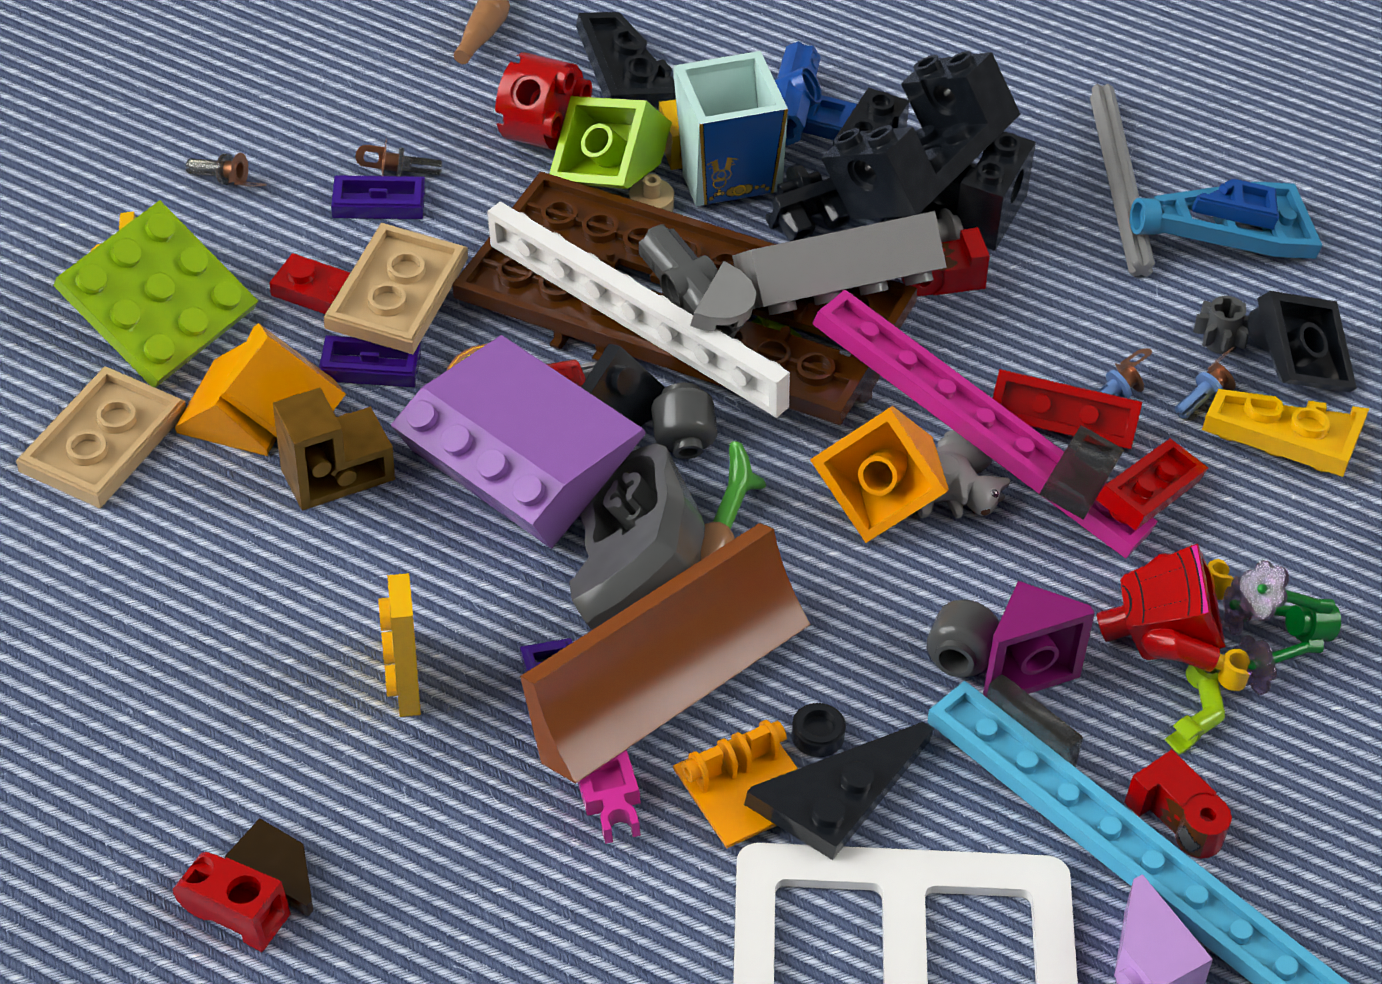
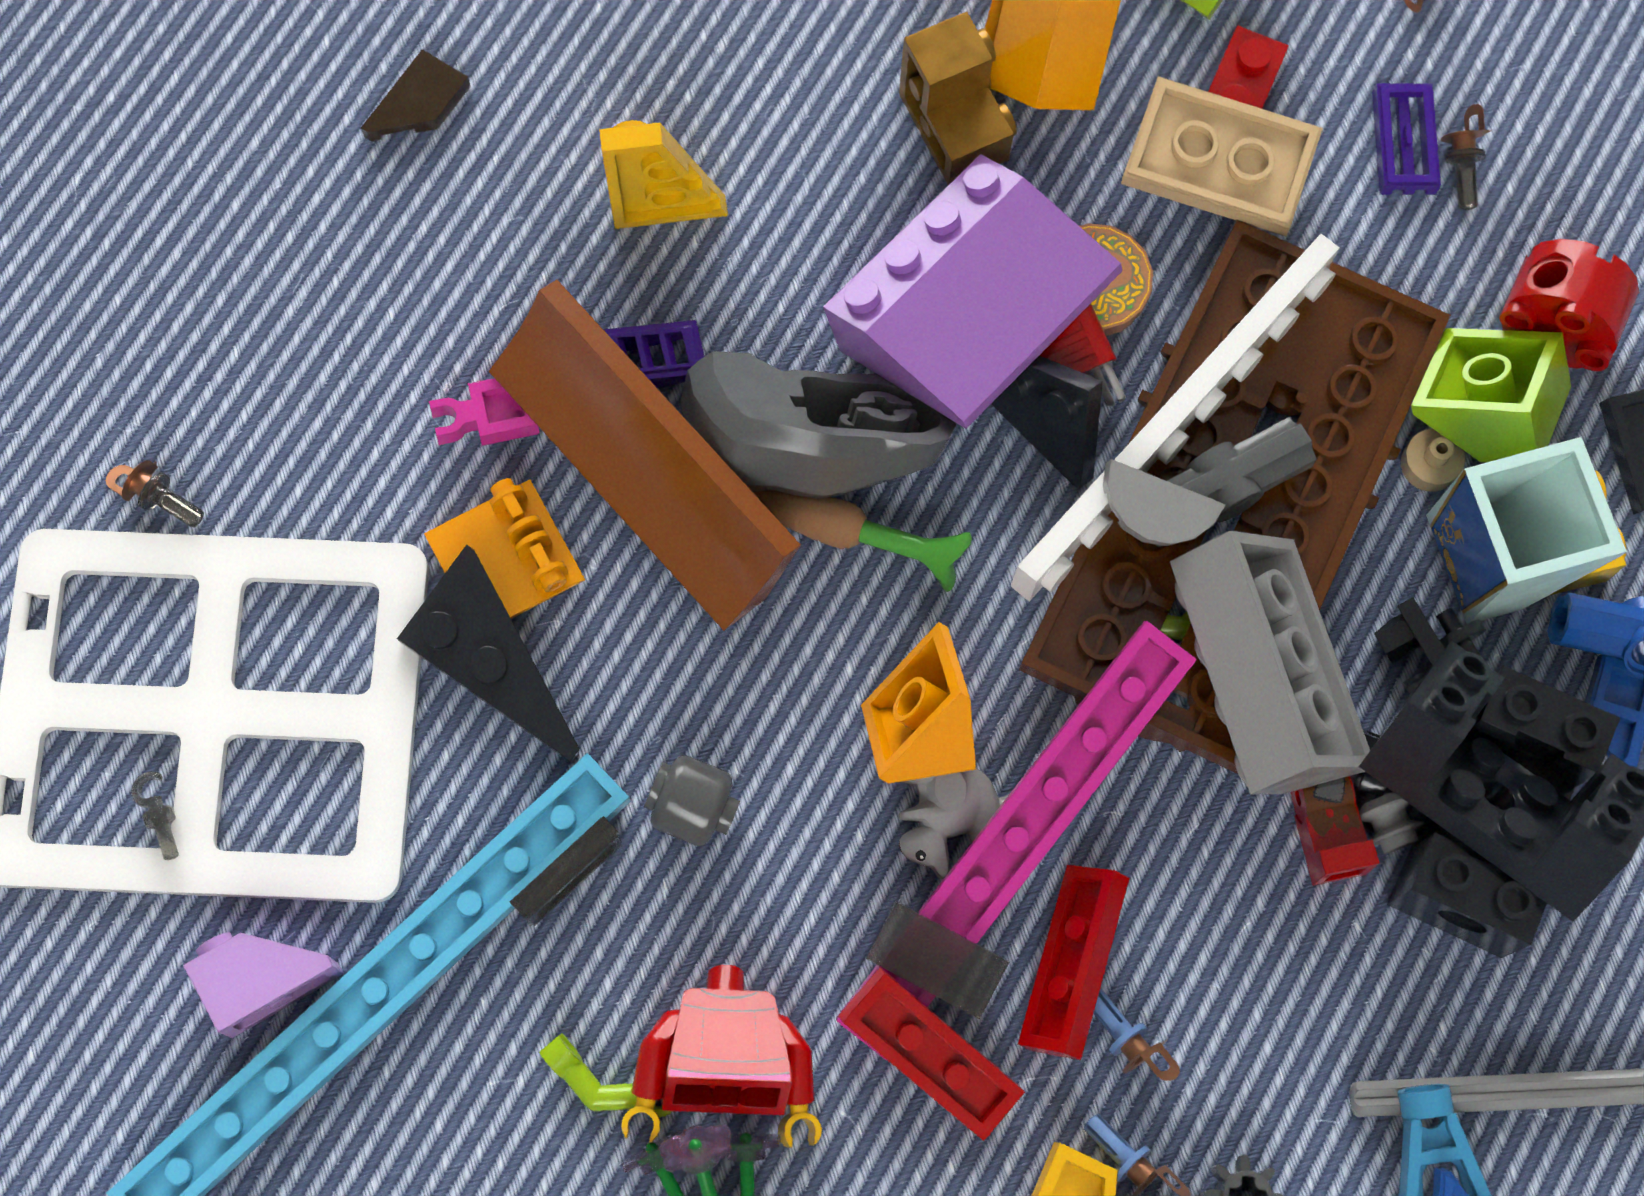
camera: 90 degrees right, 25 degrees up
(234, 898) = (369, 59): red leg -> none
(365, 364) = (1103, 186): dark purple tile -> none
(684, 420) = (1029, 490): dark grey head -> none
(818, 730) = (581, 637): black tile -> none
(1039, 639) = (667, 865): magenta slope -> none
(1182, 804) = (456, 1040): red leg -> none

